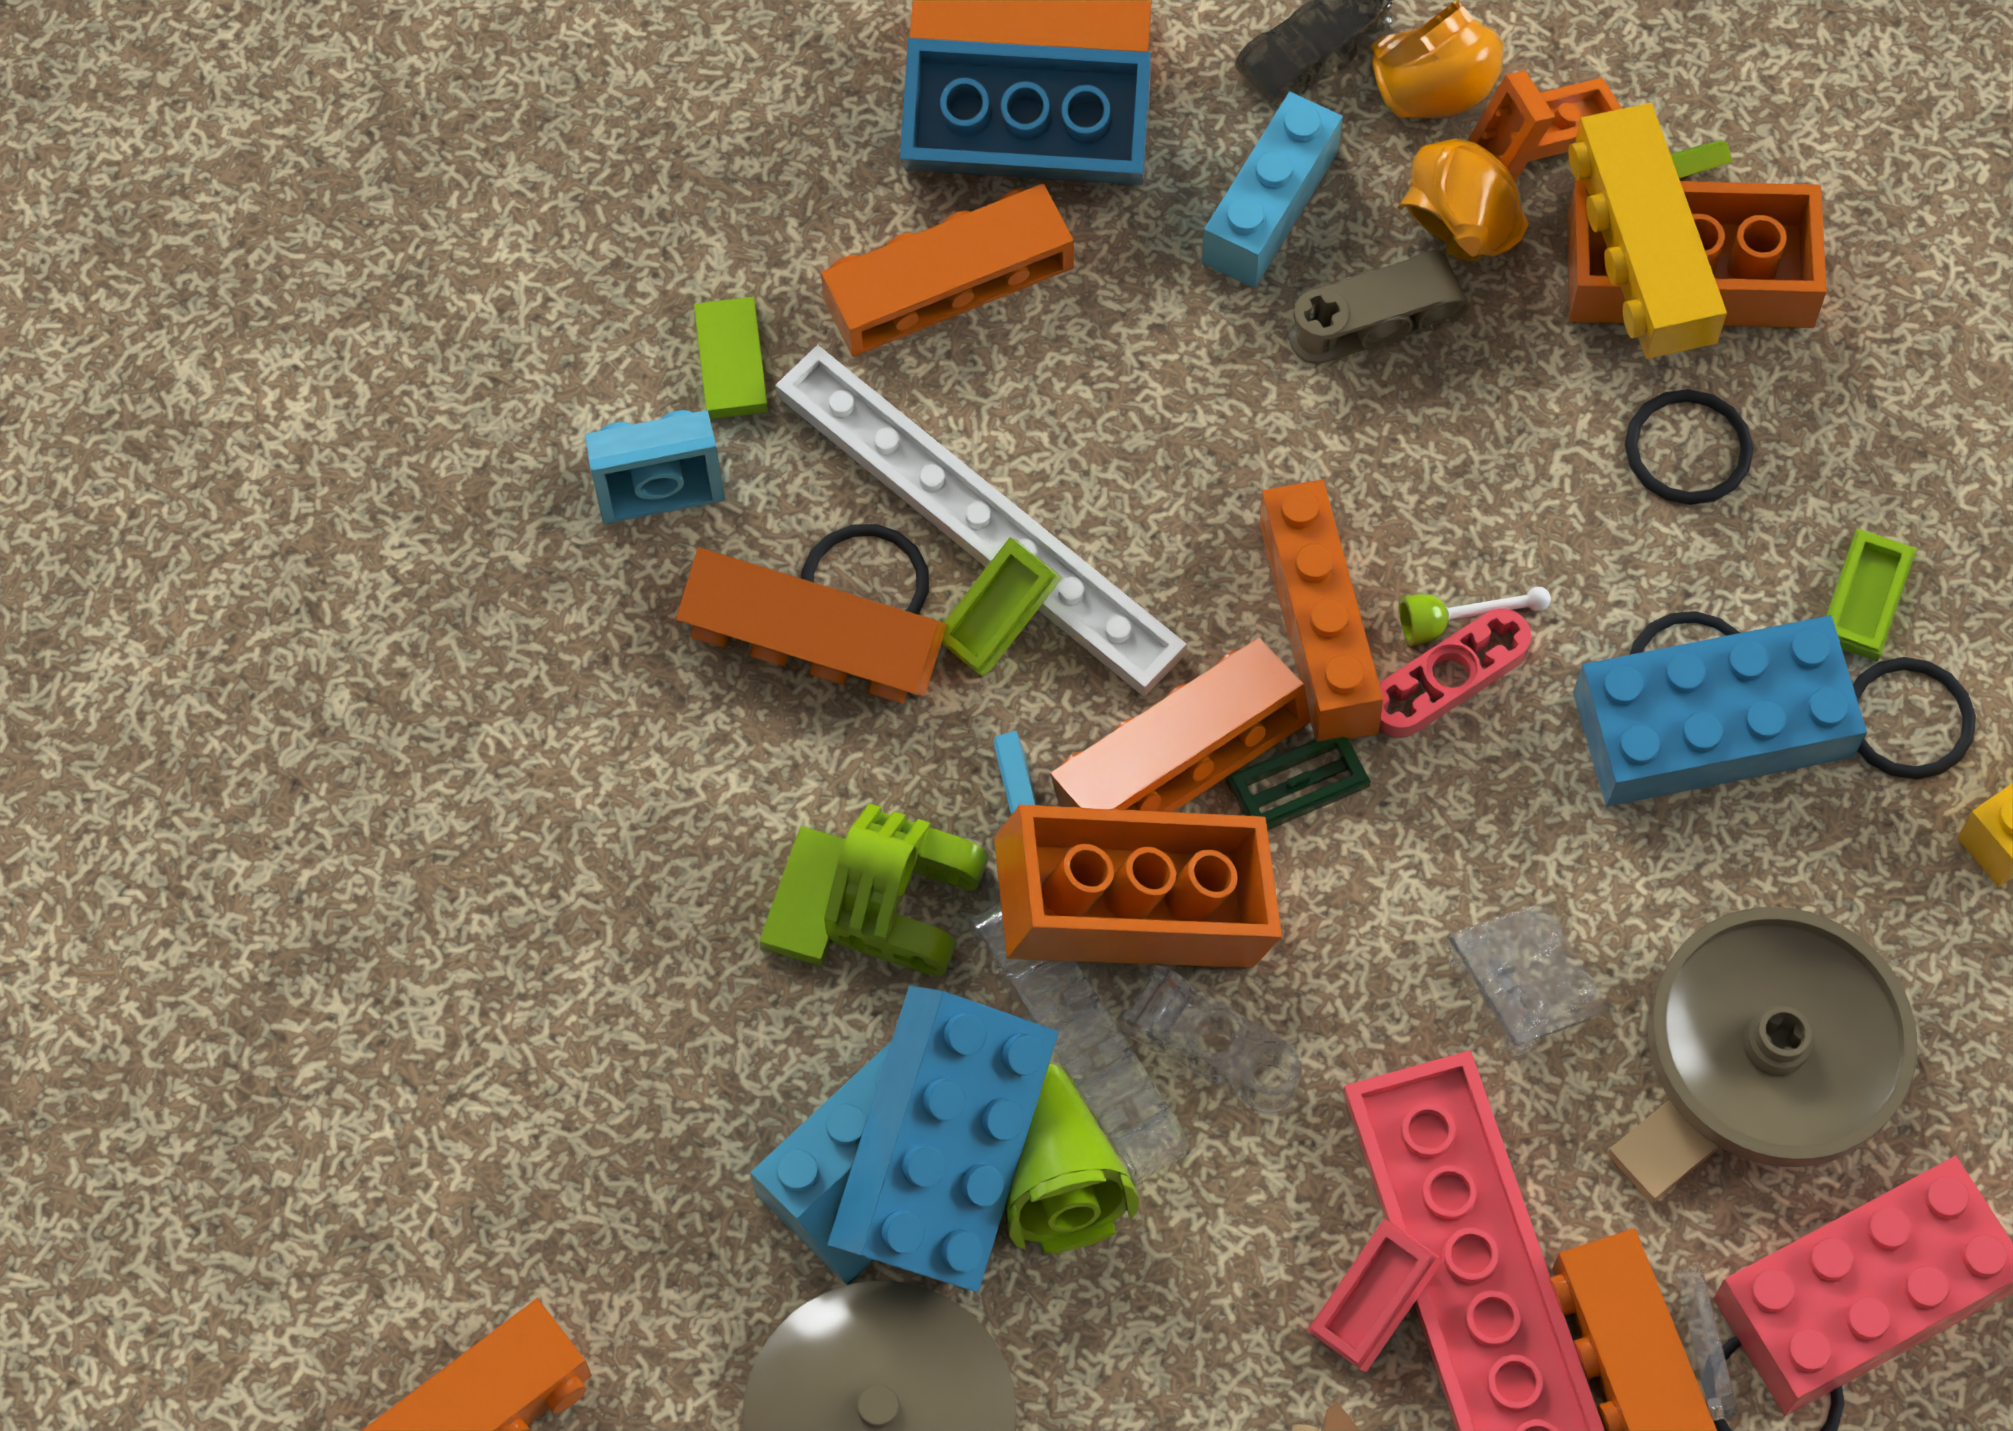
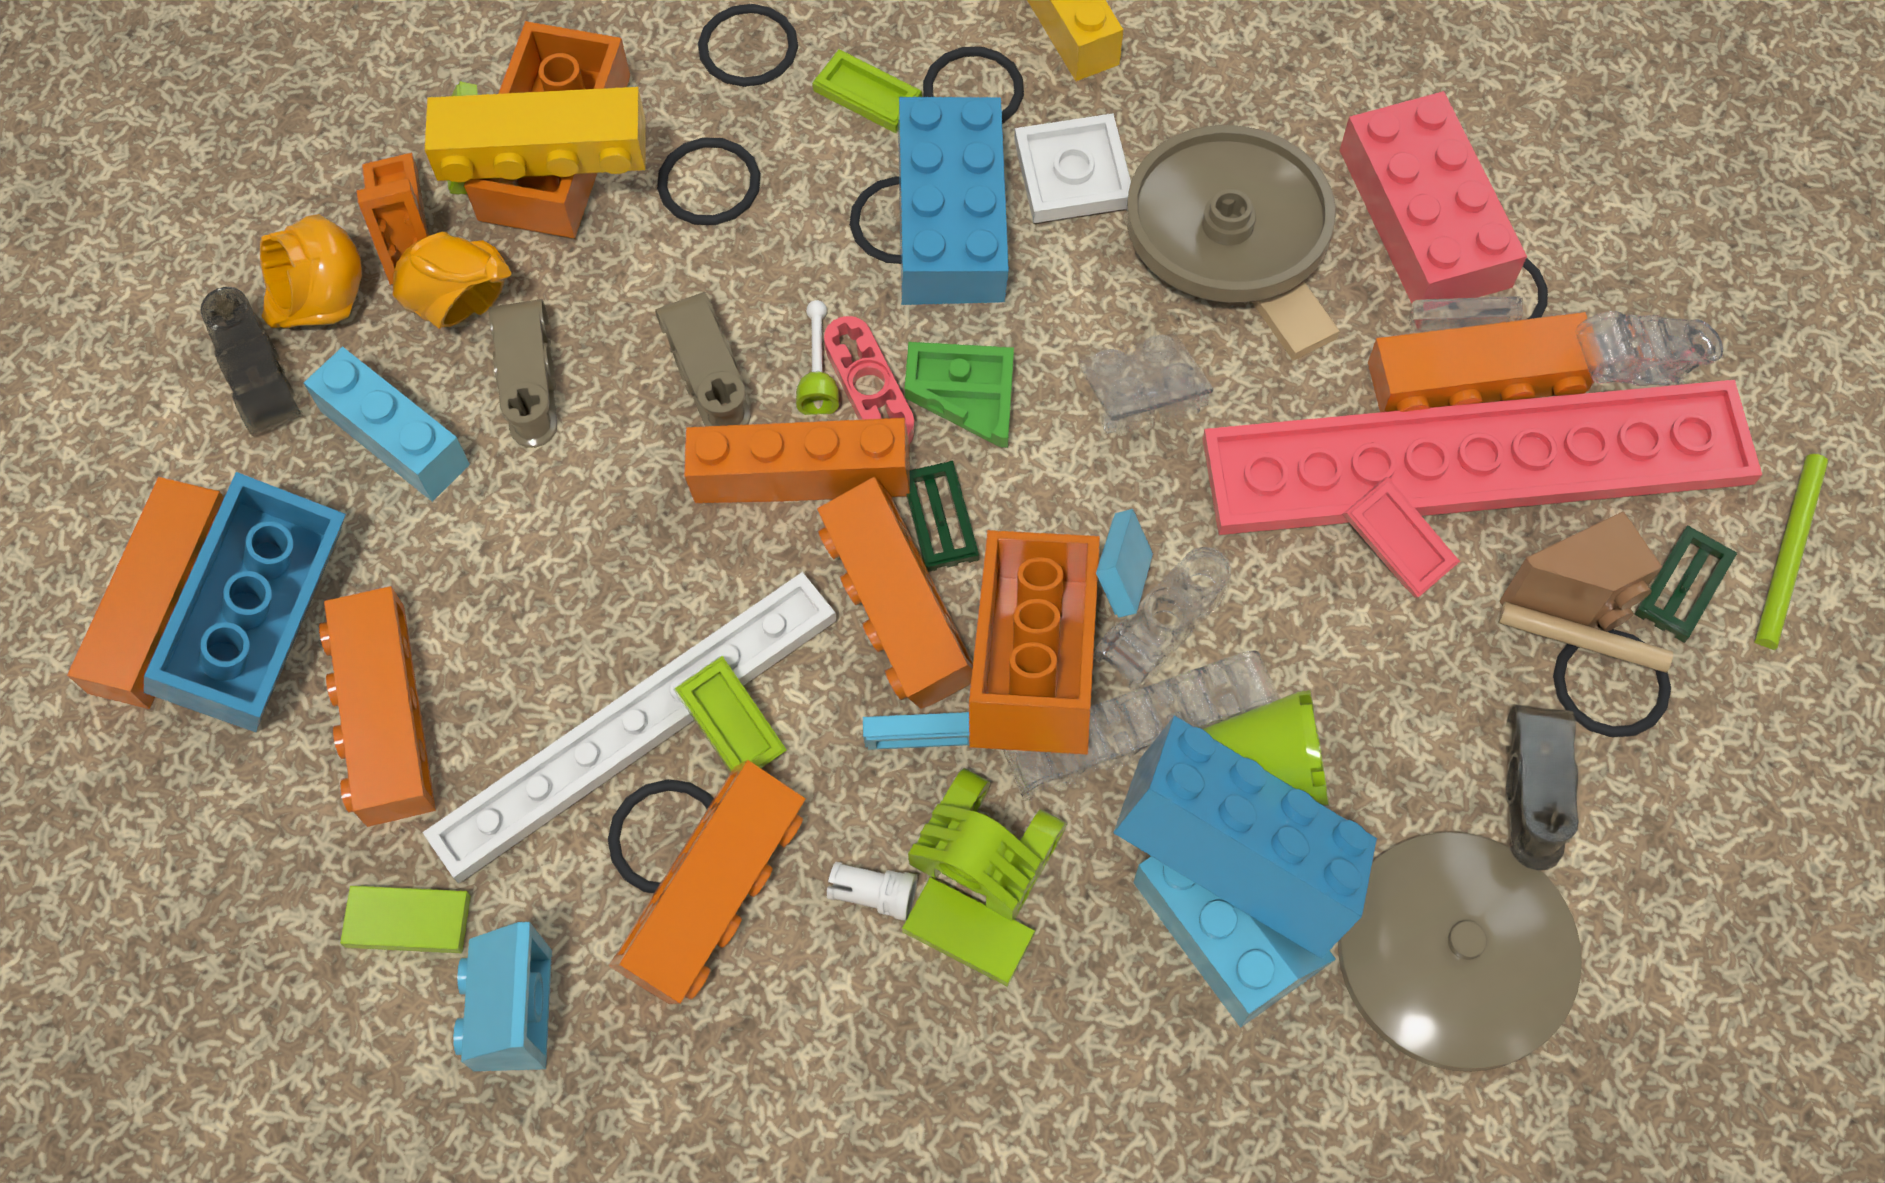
camera: 80 degrees left, 0 degrees up
(838, 788) = (888, 892): none -> white pin
(1262, 976) = (1124, 563): none -> medium azure tile
(1430, 490) = (705, 360): none -> dark tan piece
(1470, 776) = (963, 385): none -> bright green wing
(1814, 846) = (1073, 167): none -> white plate
(1881, 494) = (753, 80): none -> black piece

